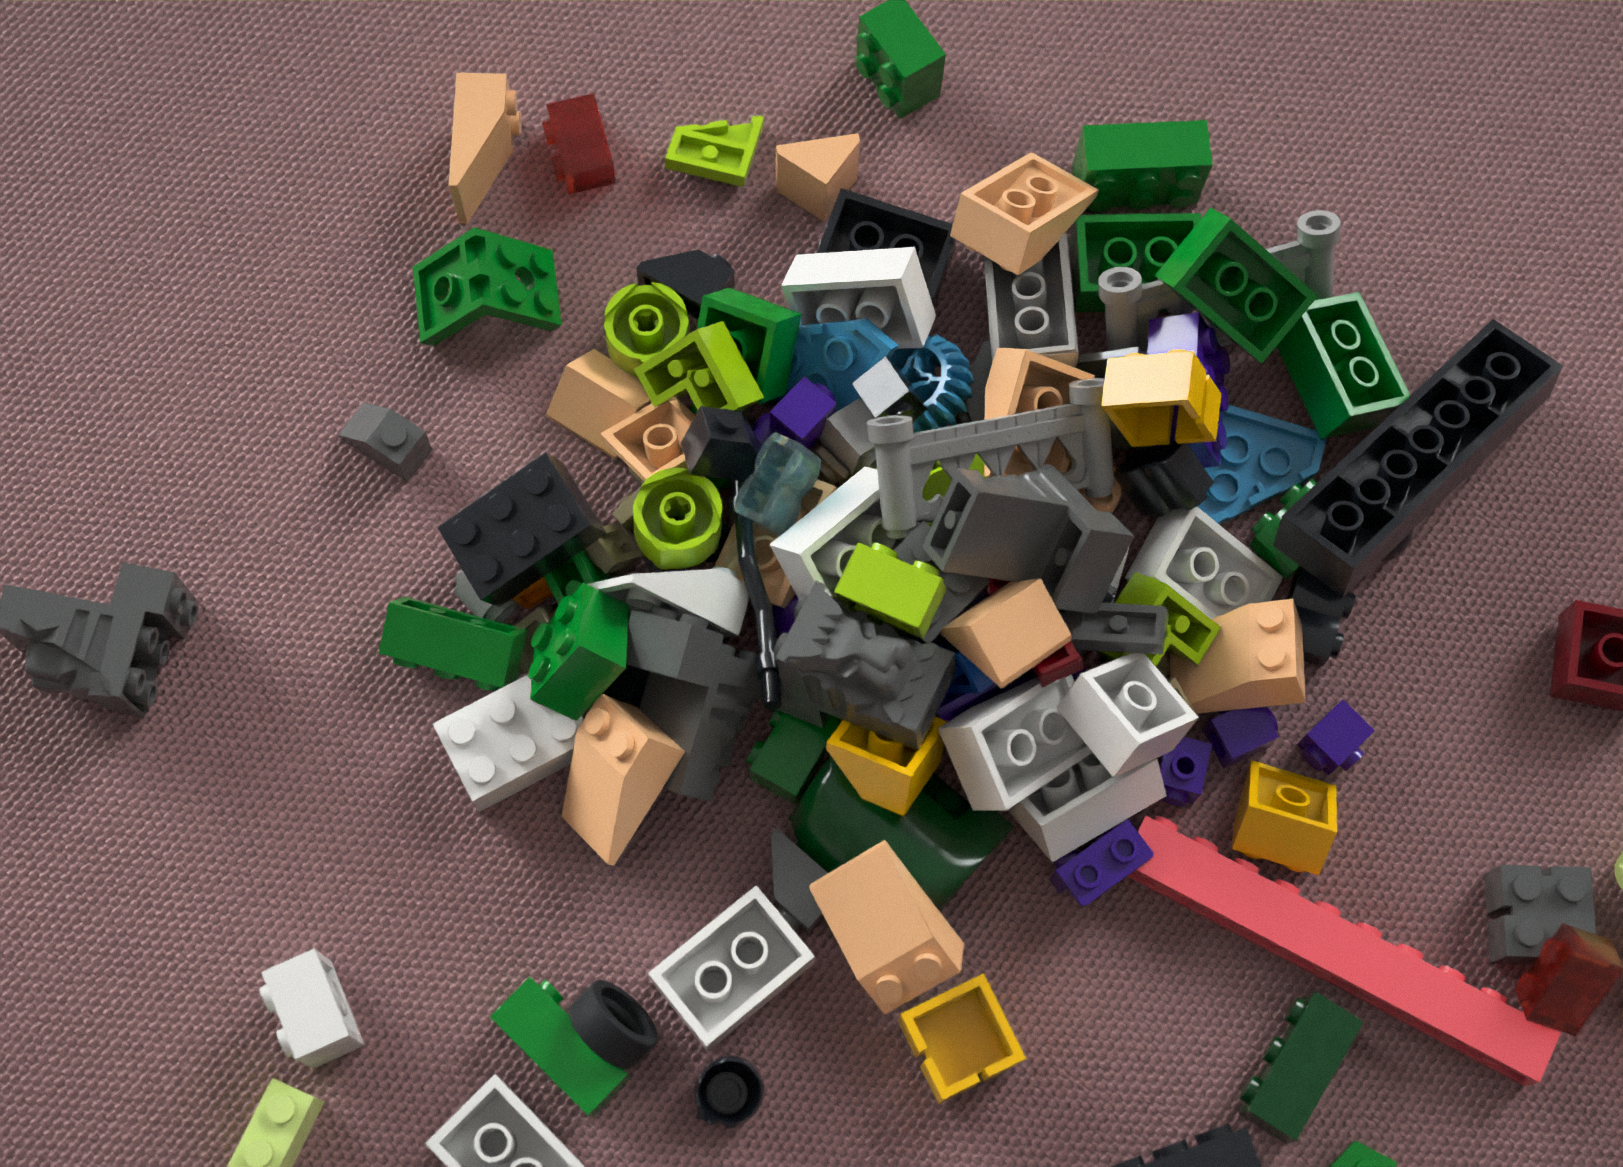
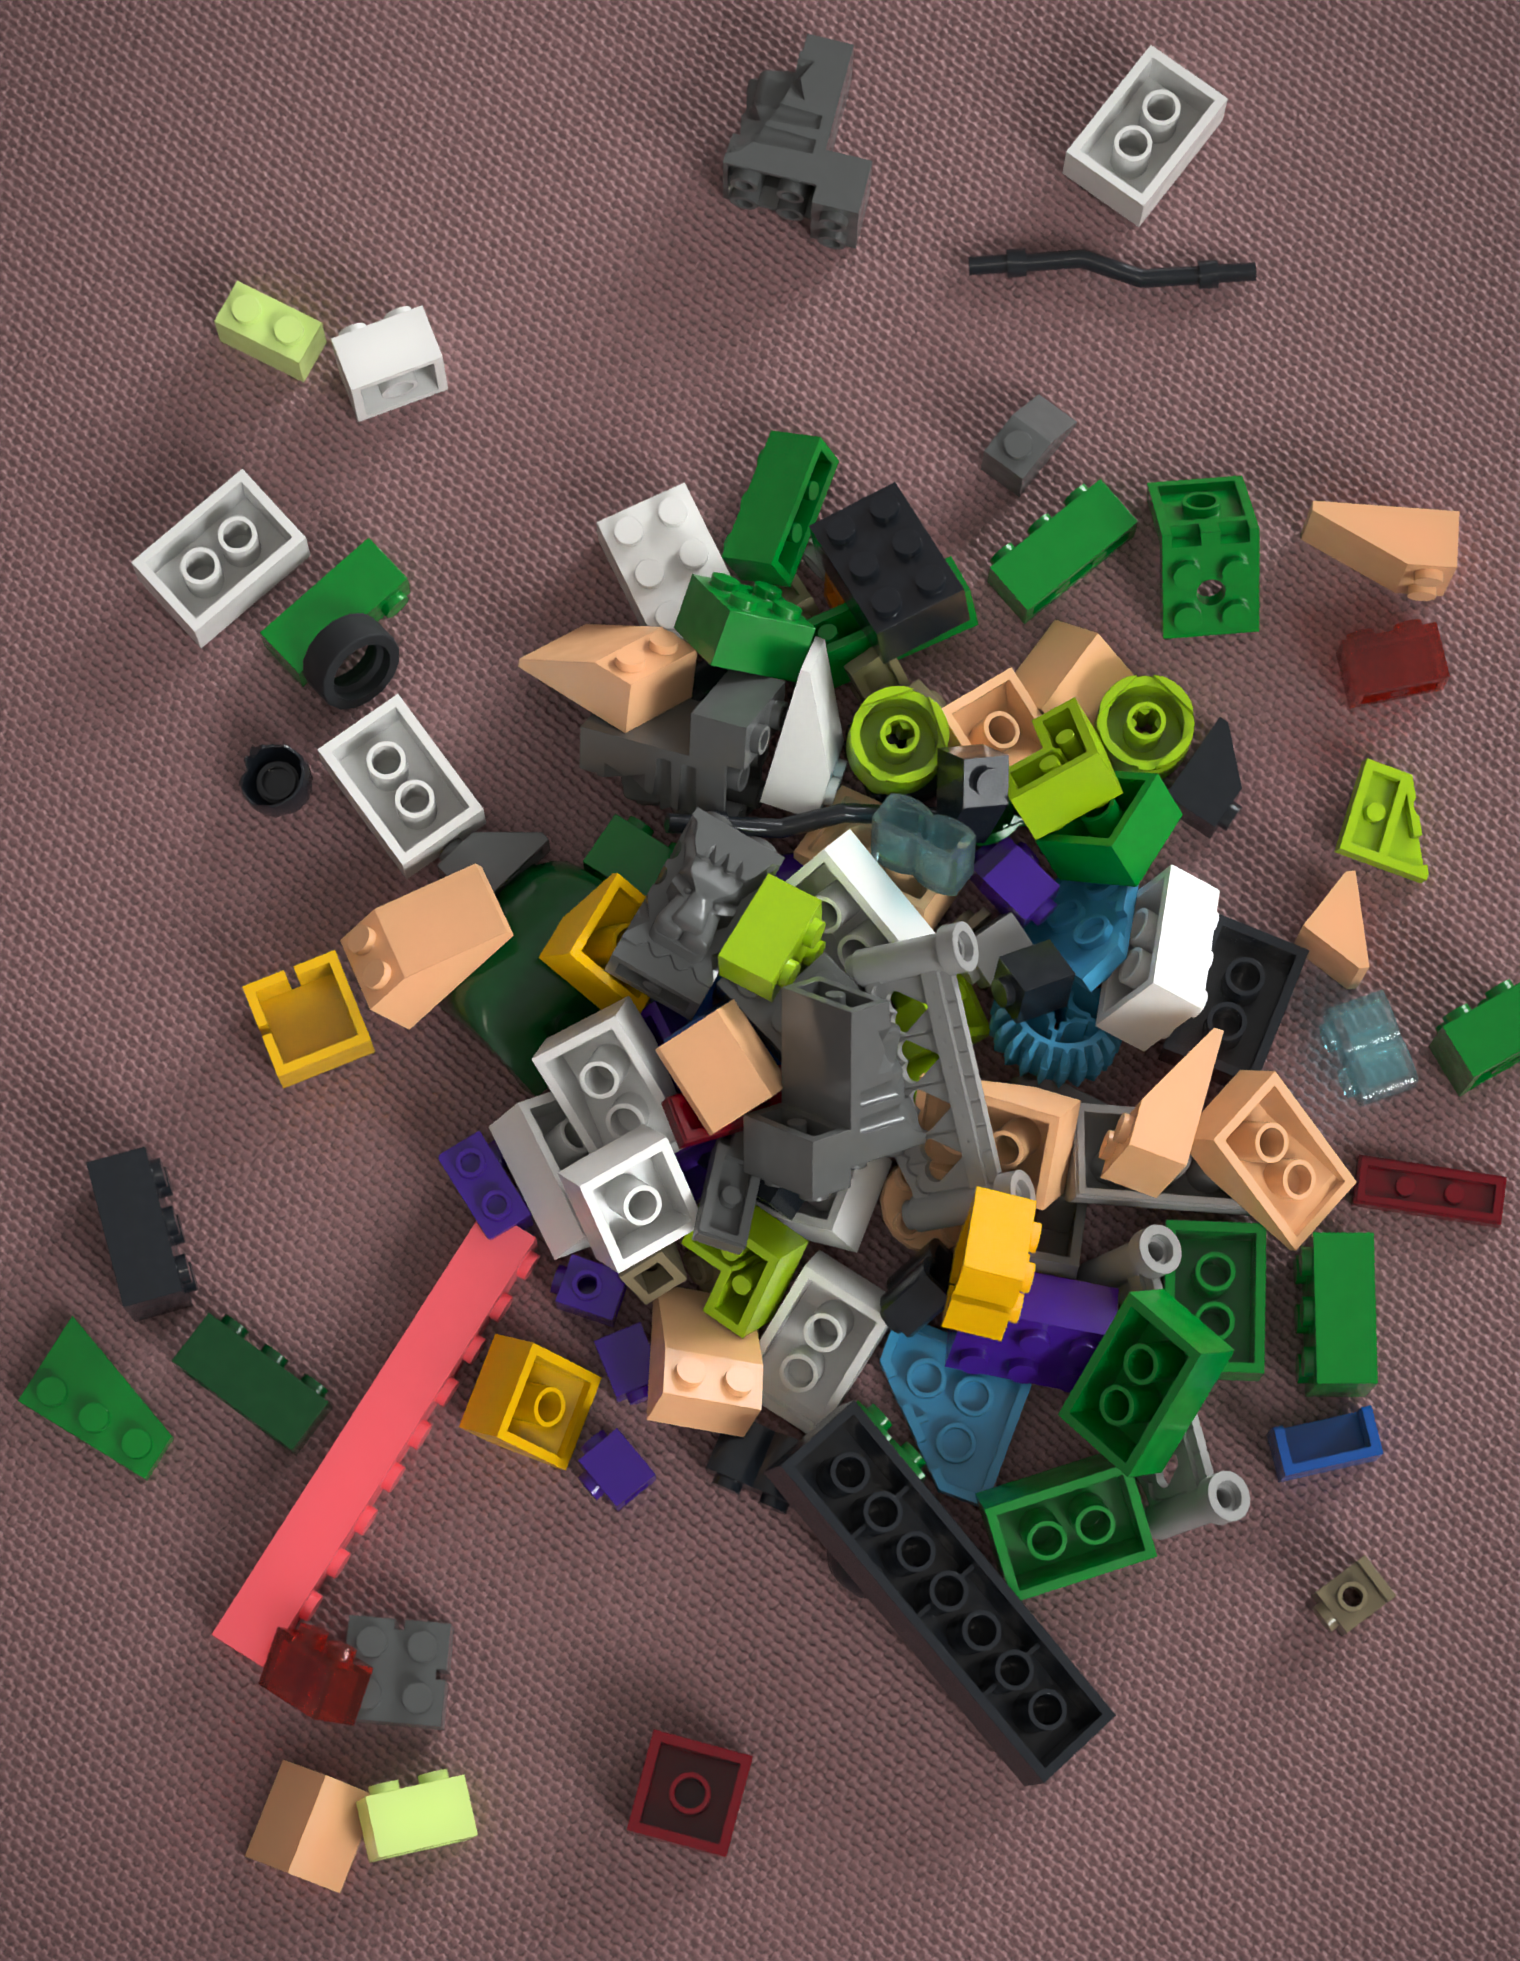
camera: 95 degrees right, 5 degrees up
(98, 347) = (1144, 135): none -> white brick
(214, 454) = (1205, 275): none -> black bar
(484, 407) = (1061, 549): none -> green brick
(911, 154) = (1369, 1048): none -> clear light blue brick
(1006, 275) = (1159, 1132): none -> light nougat slope
(1021, 109) = (1429, 1191): none -> dark red tile
(1243, 178) = (1325, 1445): none -> blue panel
(1359, 158) = (1373, 1593): none -> dark tan brick

